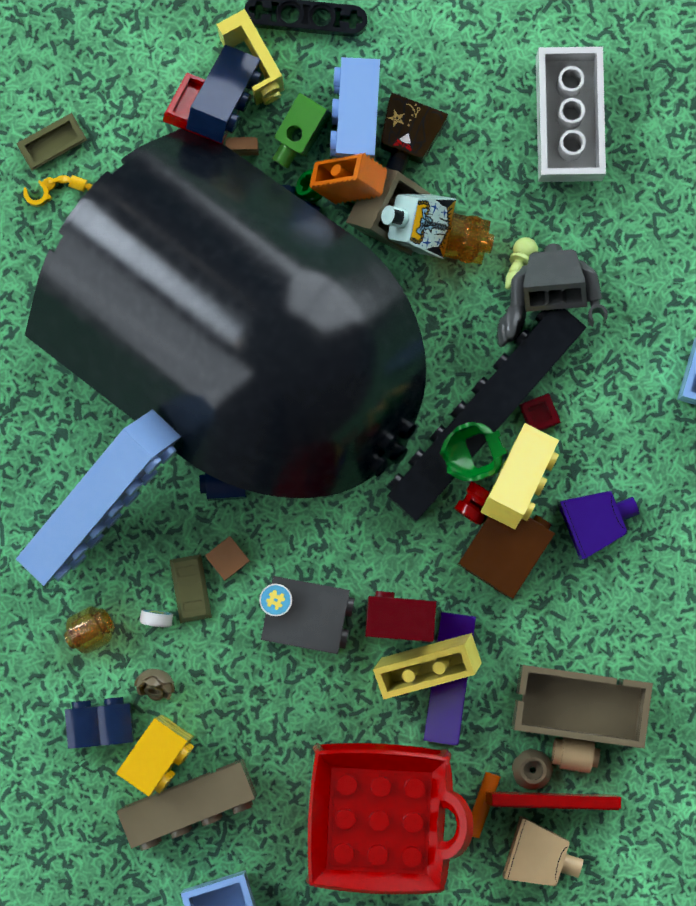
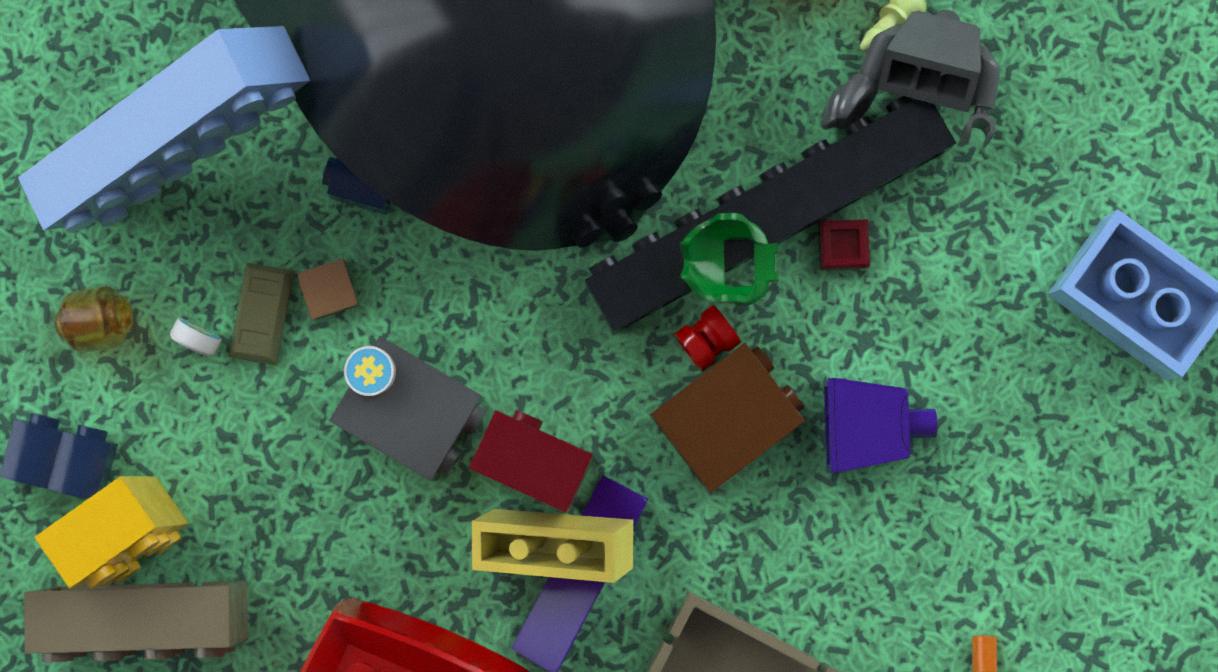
camera: 20 degrees right, 0 degrees up
(155, 684) = (159, 429): dark tan plate -> none
(521, 477) = (785, 323): light yellow brick -> none

